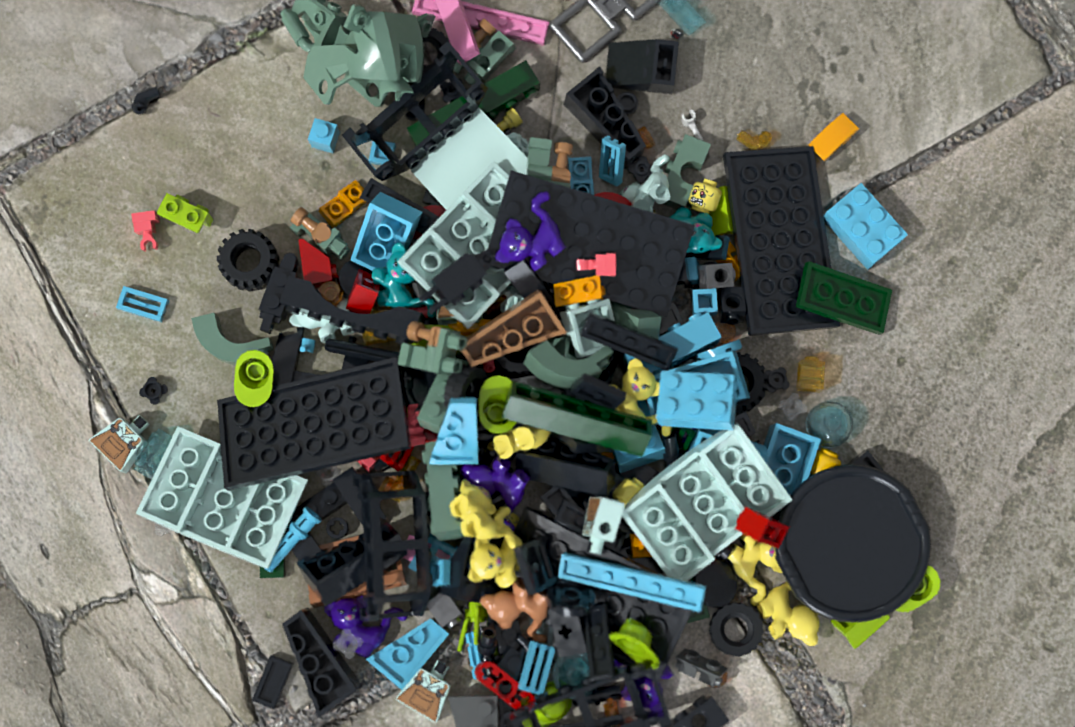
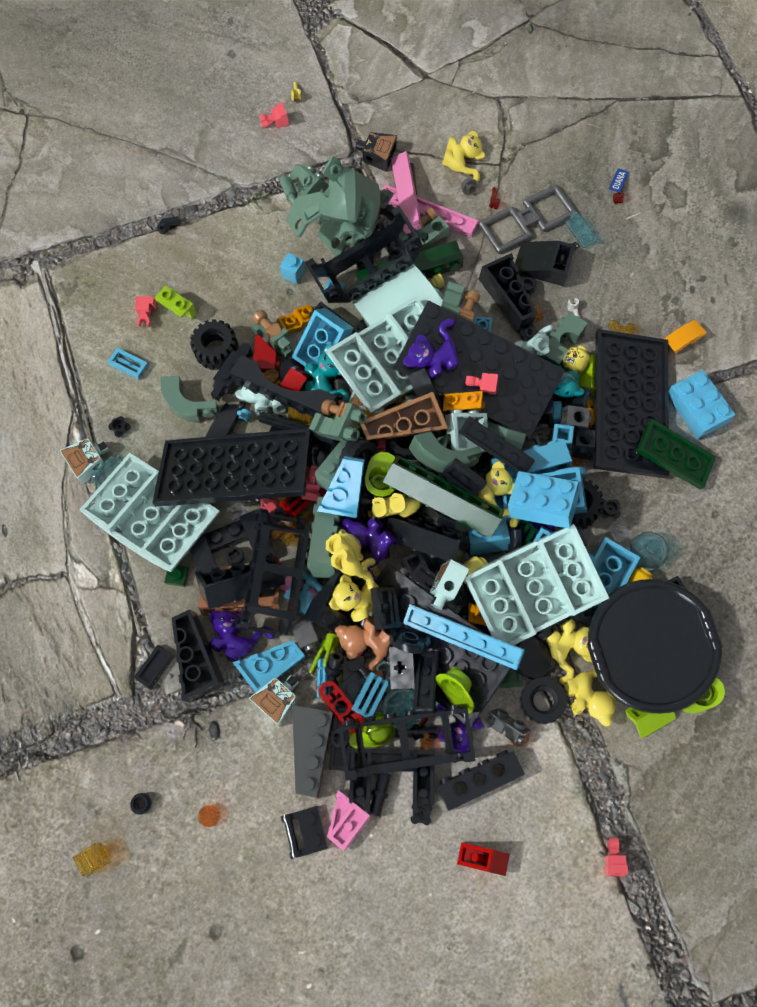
camera: 15 degrees right, 10 degrees down
(253, 378) = (196, 426): lime piece -> none
(297, 532) = (202, 548): medium azure pin -> none
(340, 644) = (226, 644): clear plate -> none
(441, 572) = (308, 601): medium azure tile -> none
(457, 278) = (369, 371): black hinge -> none
(615, 163) = (510, 322): medium azure tile -> none
(761, 527) = (580, 613): red slope -> none
(810, 375) = (639, 509): clear yellow brick -> none

